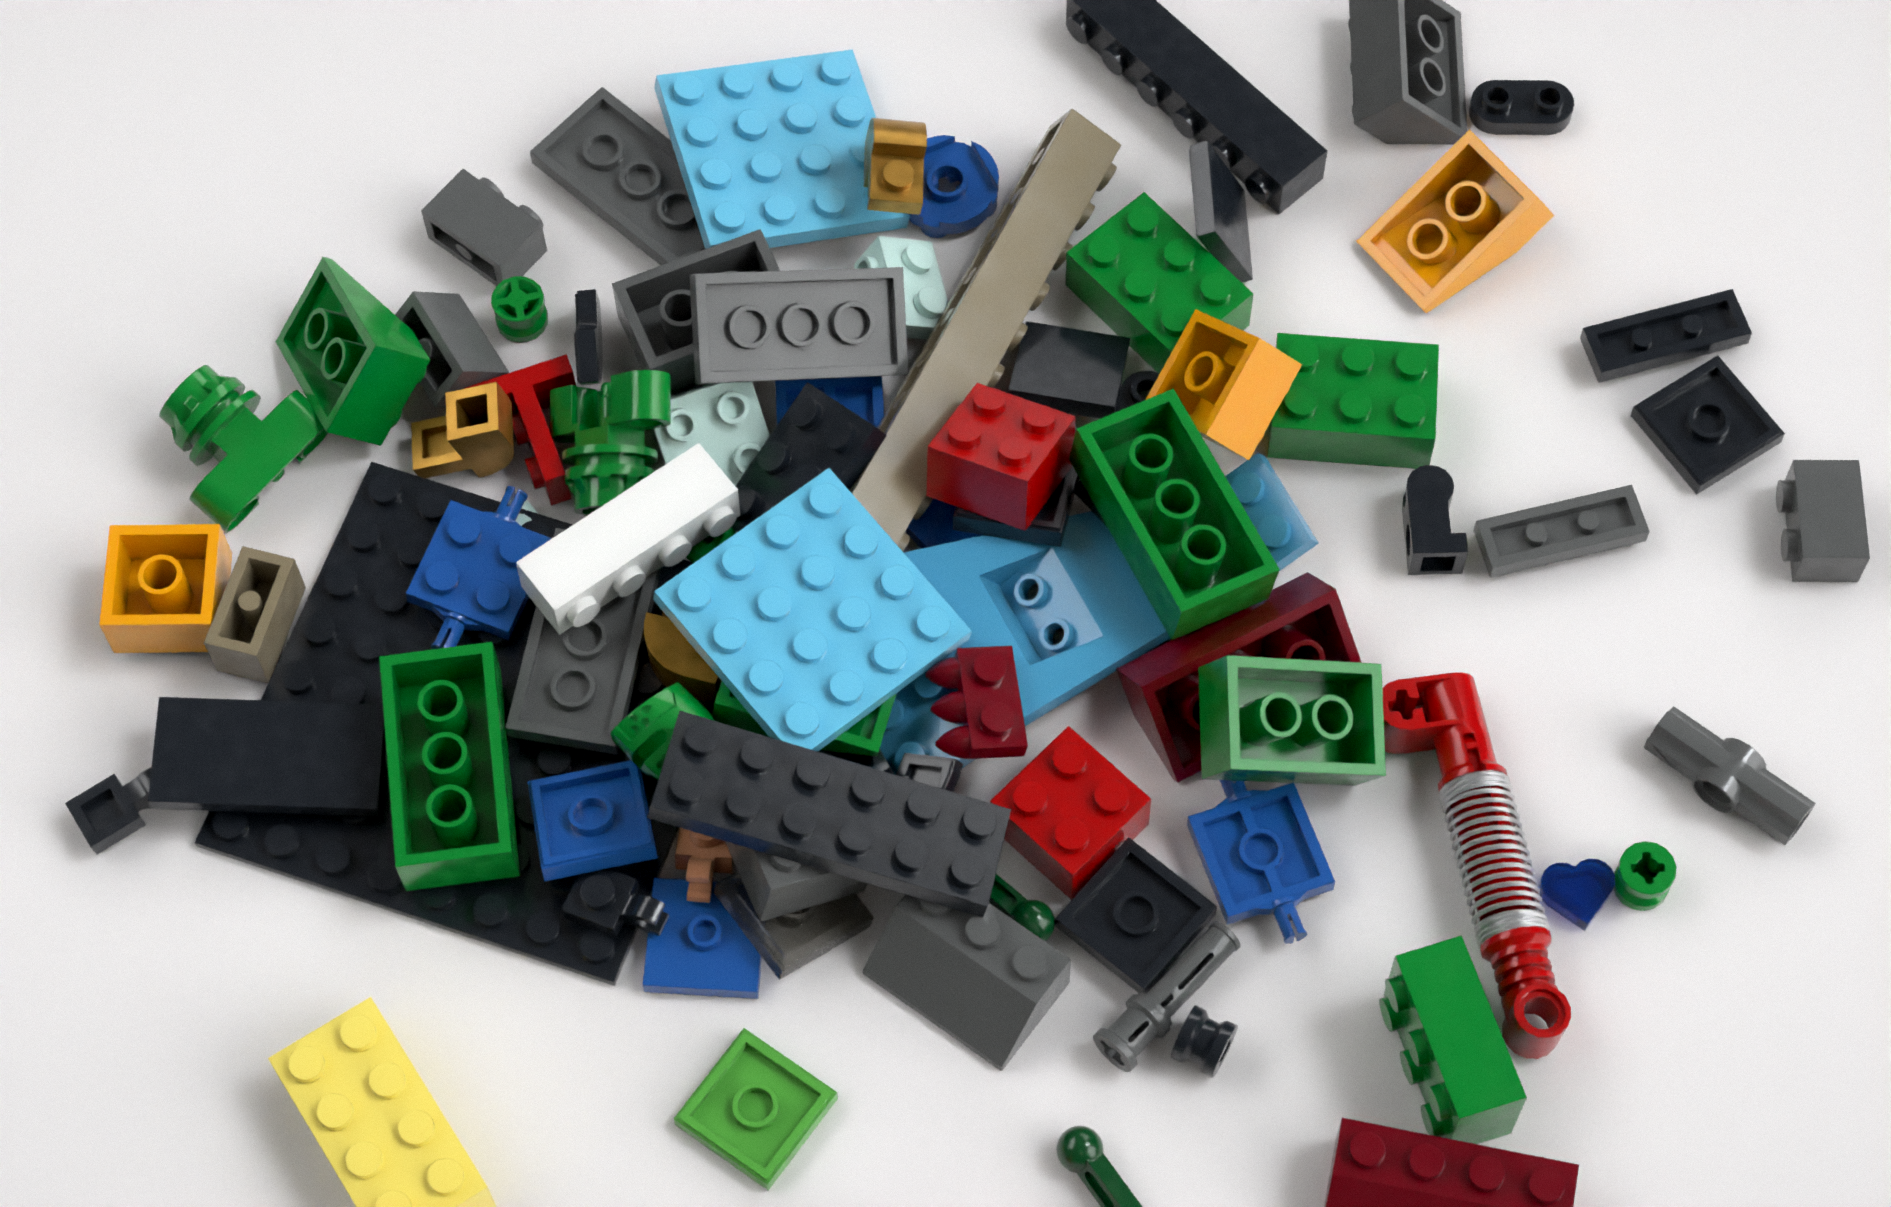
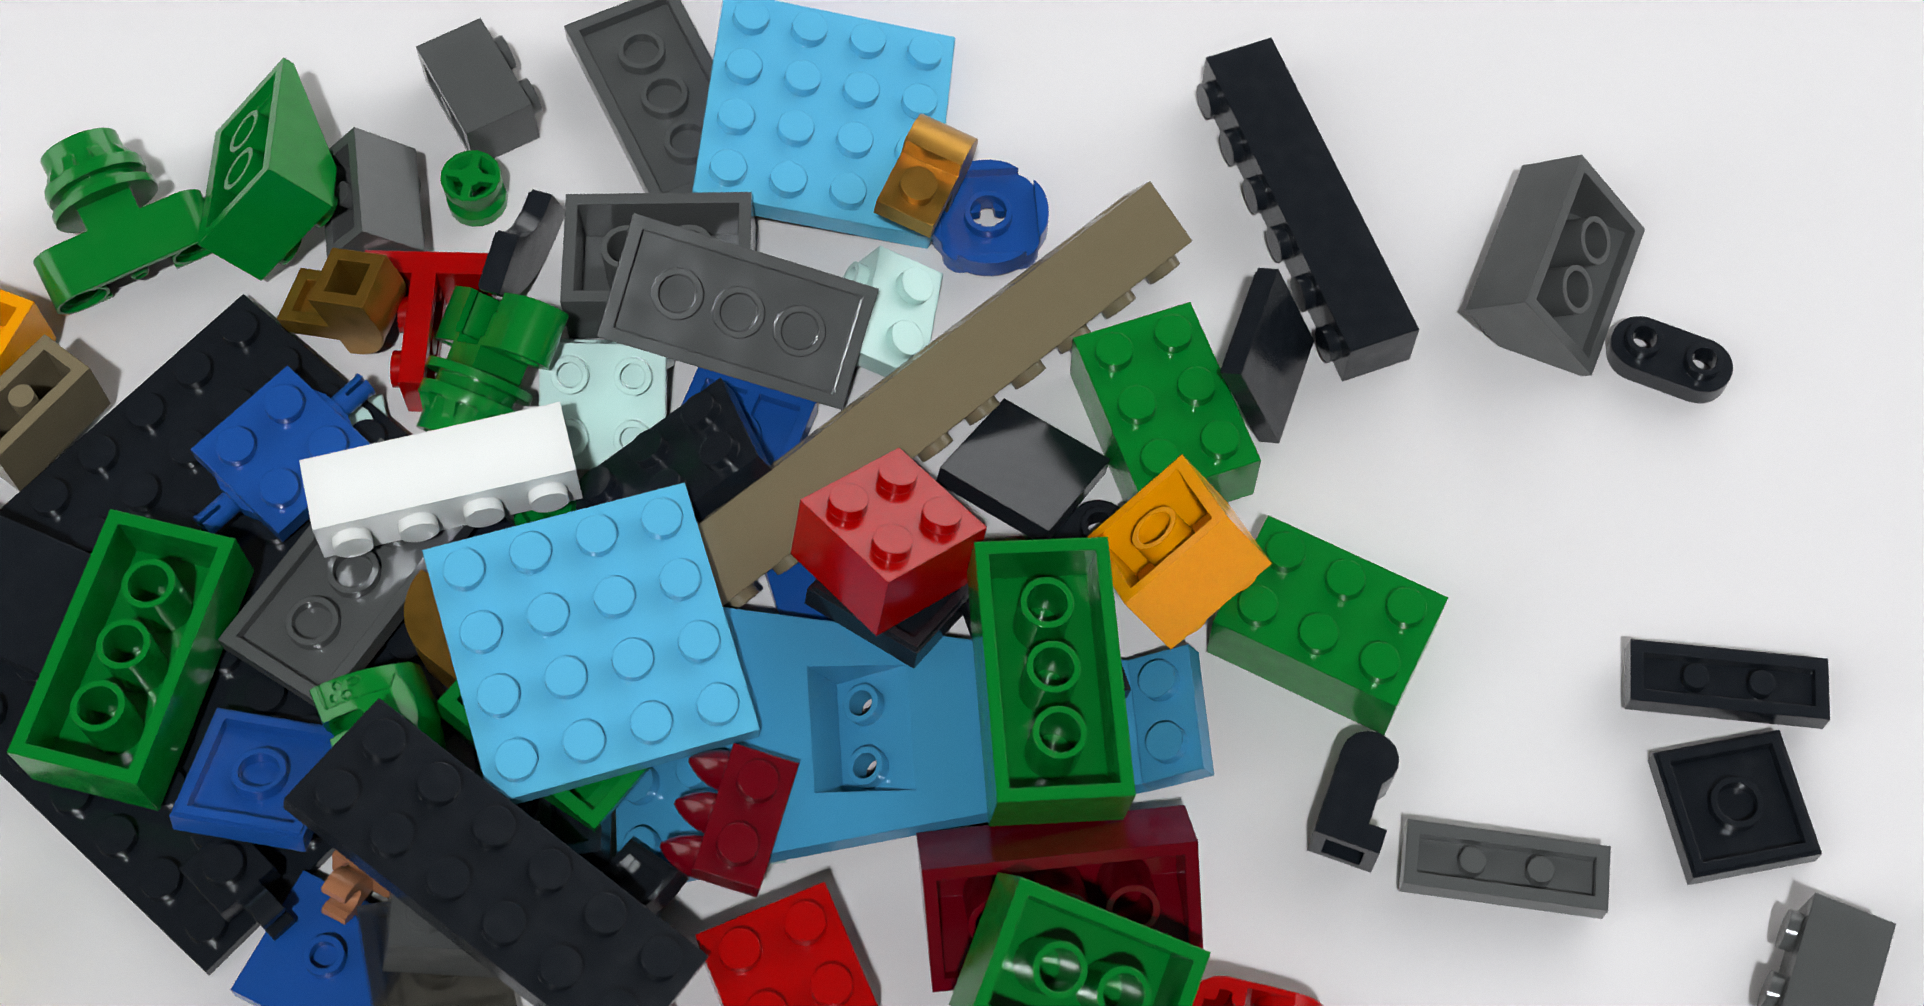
camera: 20 degrees right, 0 degrees up
(1454, 224) = (1533, 464): light orange slope -> none

